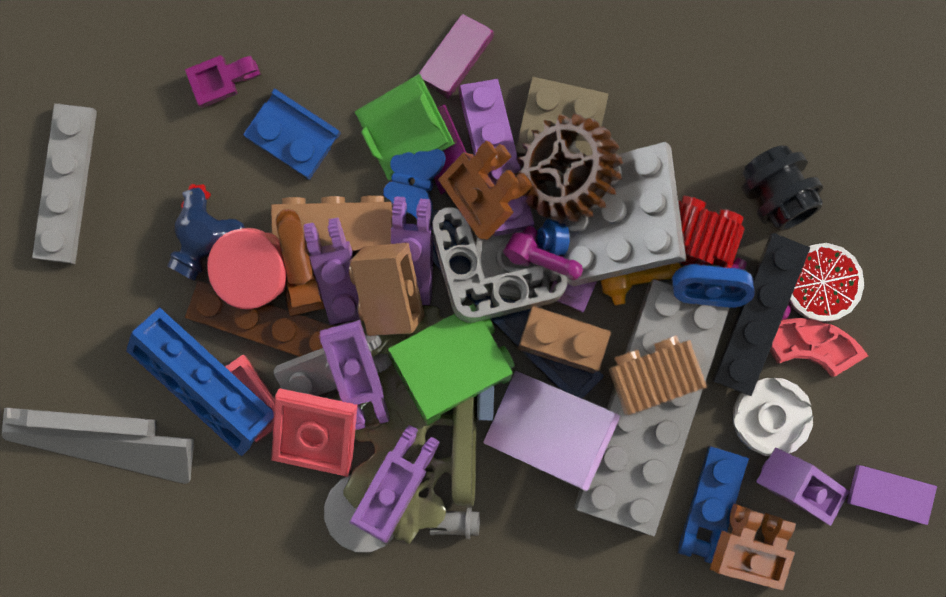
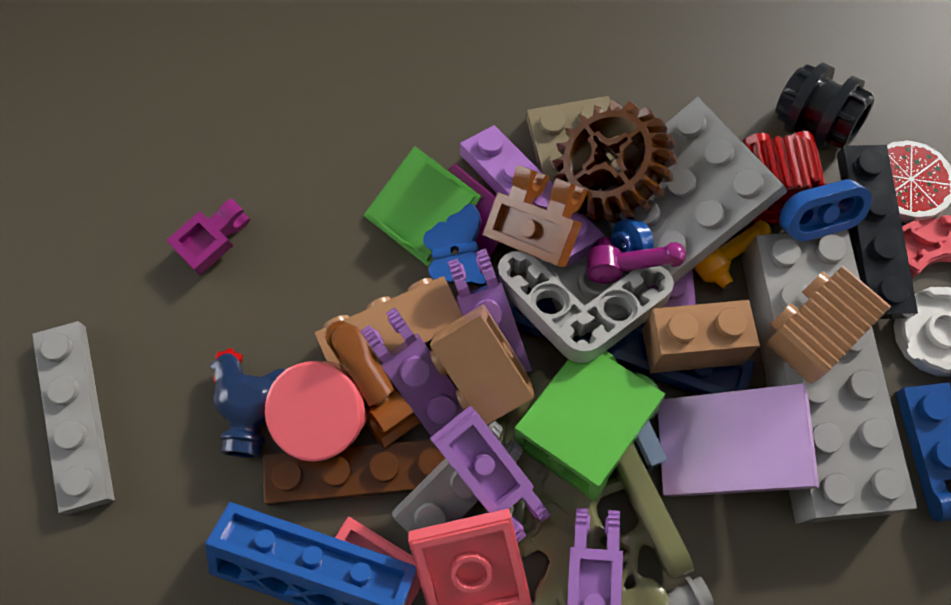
camera: 25 degrees left, 15 degrees down
(292, 134) = (307, 262): blue plate -> none
(456, 55) = (444, 120): slope -> none

